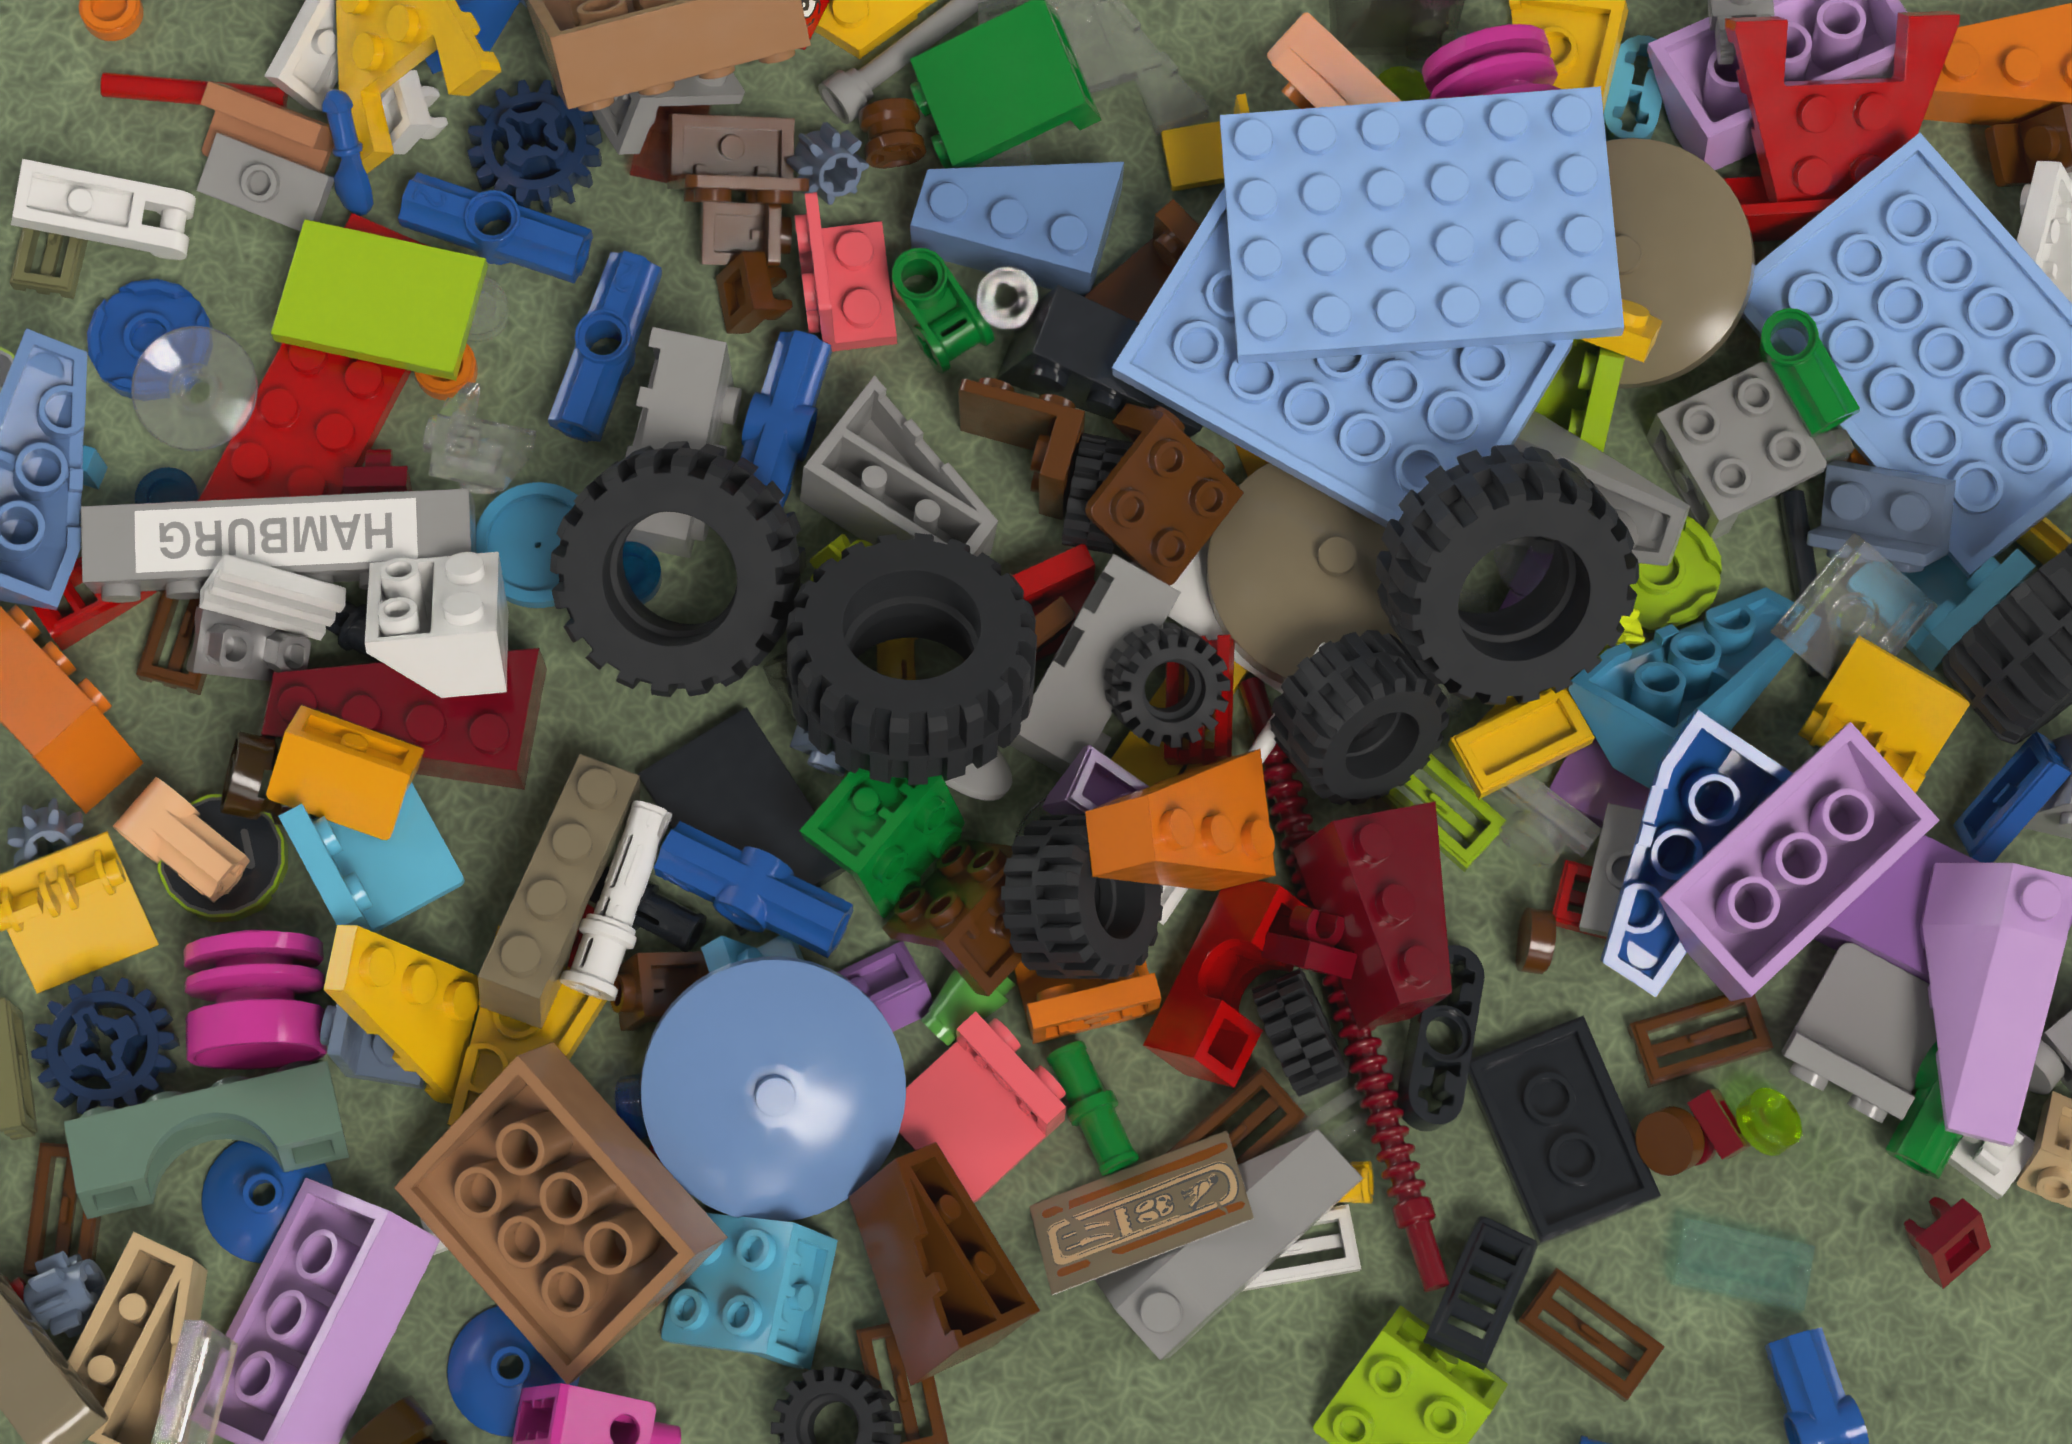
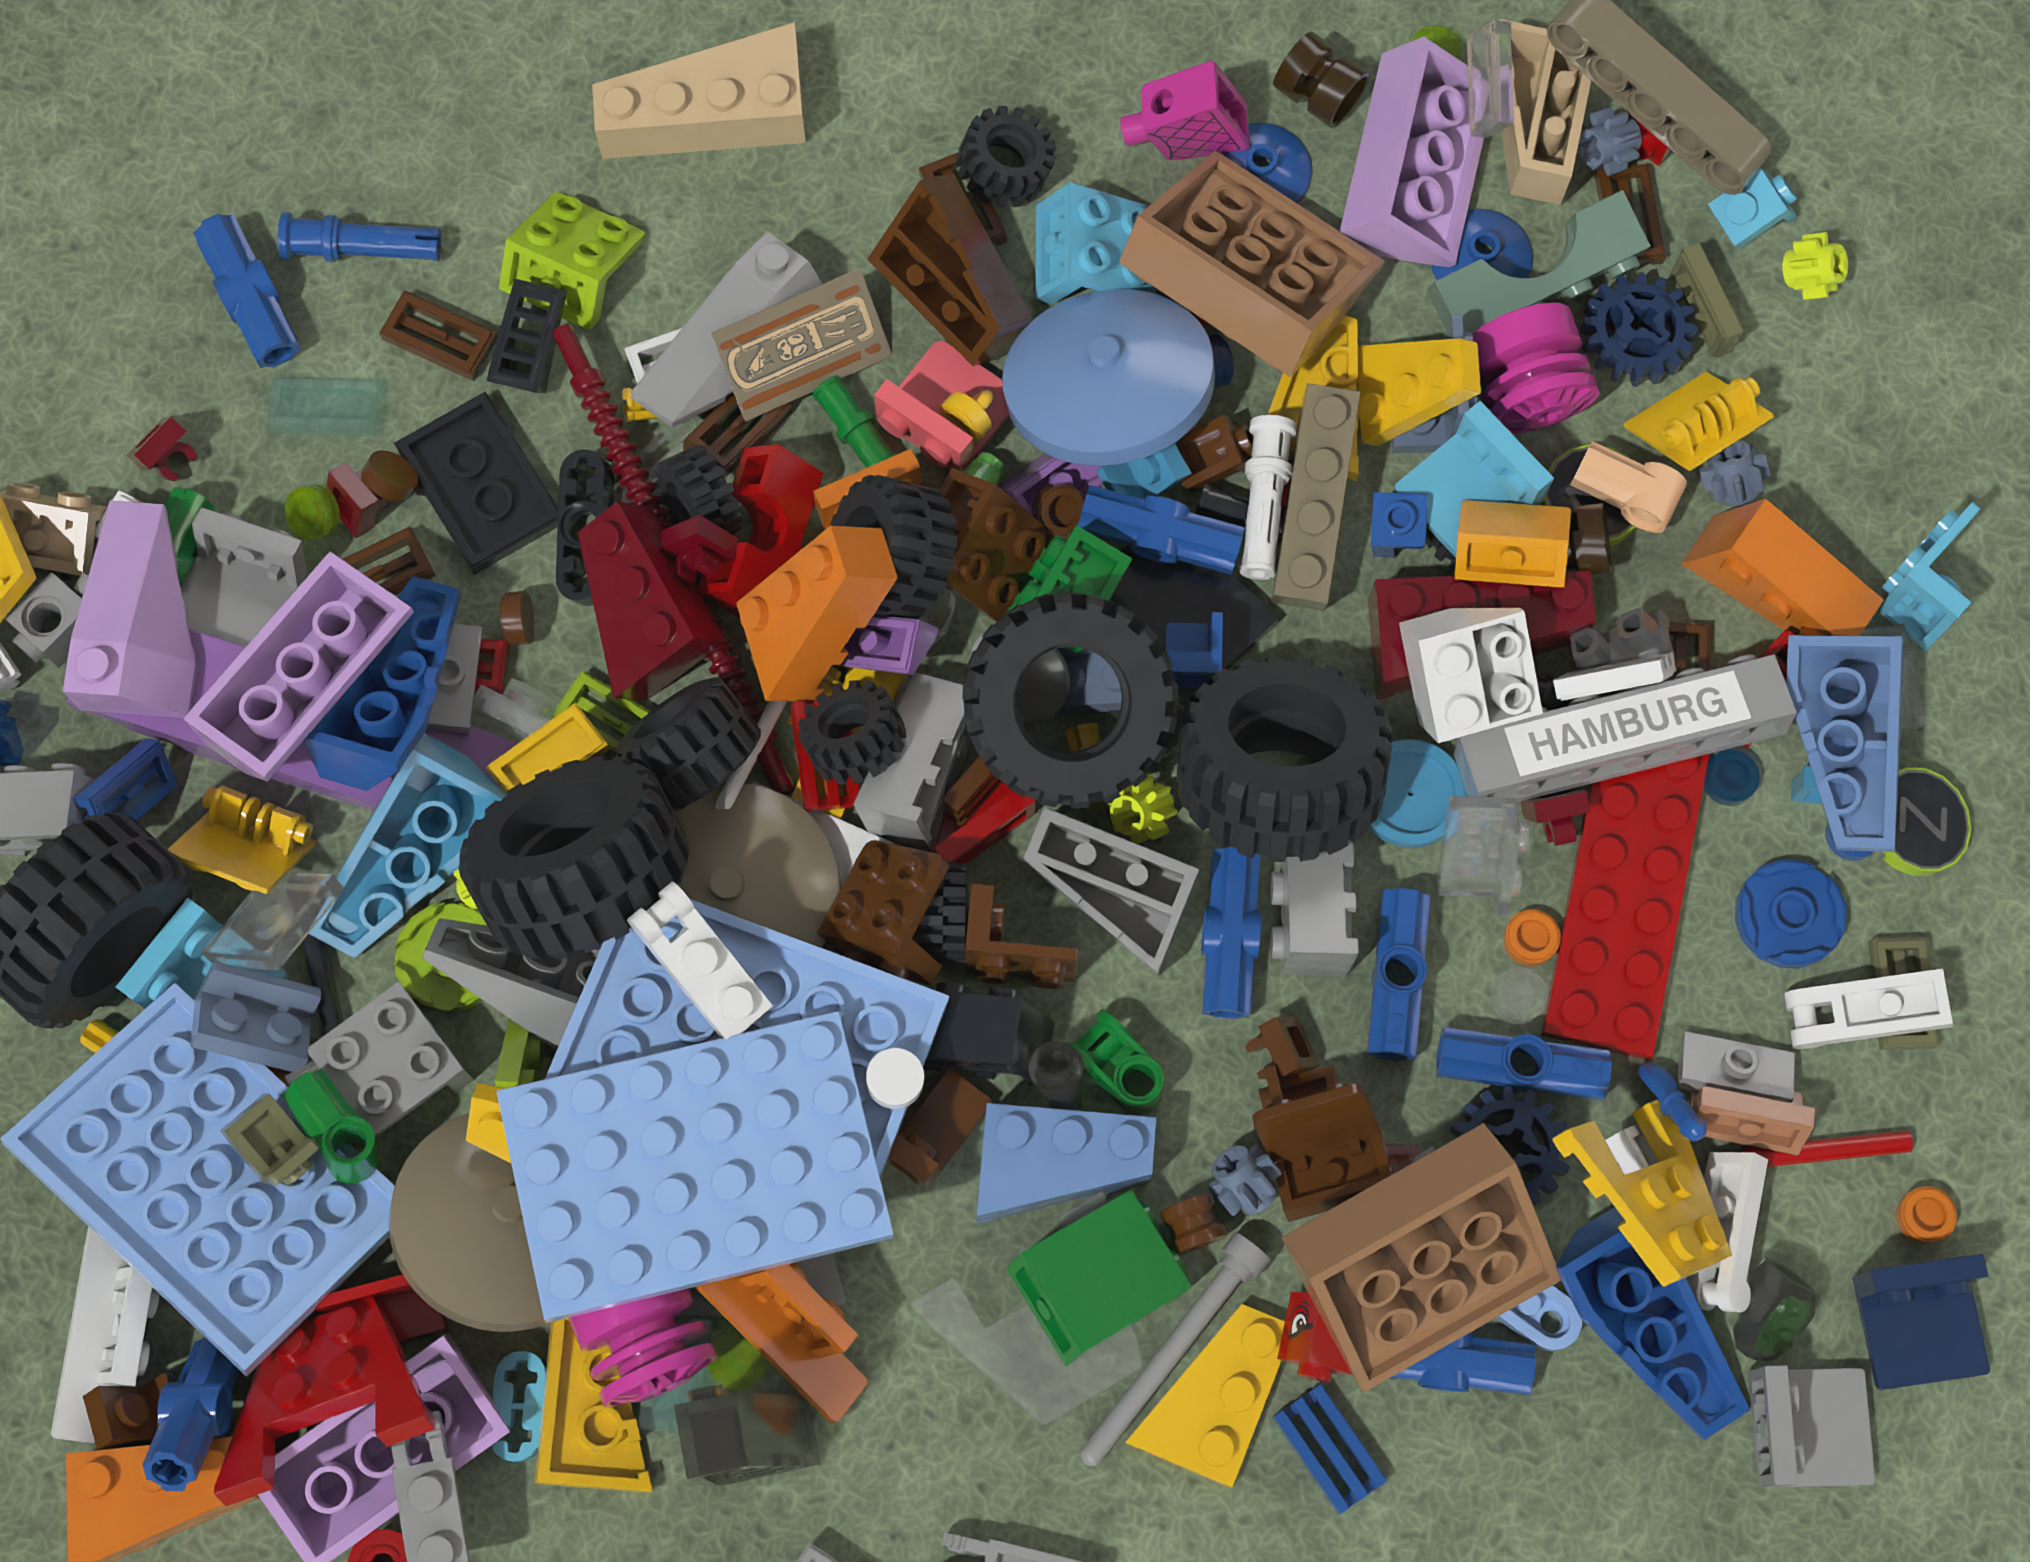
camera: 170 degrees right, 0 degrees up
(170, 371) = (1745, 844): clear dish -> none
(379, 299) = (1604, 969): lime tile -> none
(470, 839) = (1398, 522): none -> blue bracket
(748, 738) = (1195, 650): none -> blue panel
(845, 281) = (1204, 1074): coral bracket -> none
(867, 954) = (1058, 508): none -> reddish brown tile
(963, 1080) = (968, 413): none -> yellow tile
(1188, 280) = (894, 1078): none -> white tile
(1195, 152) = (905, 1266): yellow bracket -> none
(1382, 416) = (700, 963): none -> white plate
(1873, 357) = (270, 1142): none -> olive bracket
(1980, 108) = (191, 1416): none -> blue piece

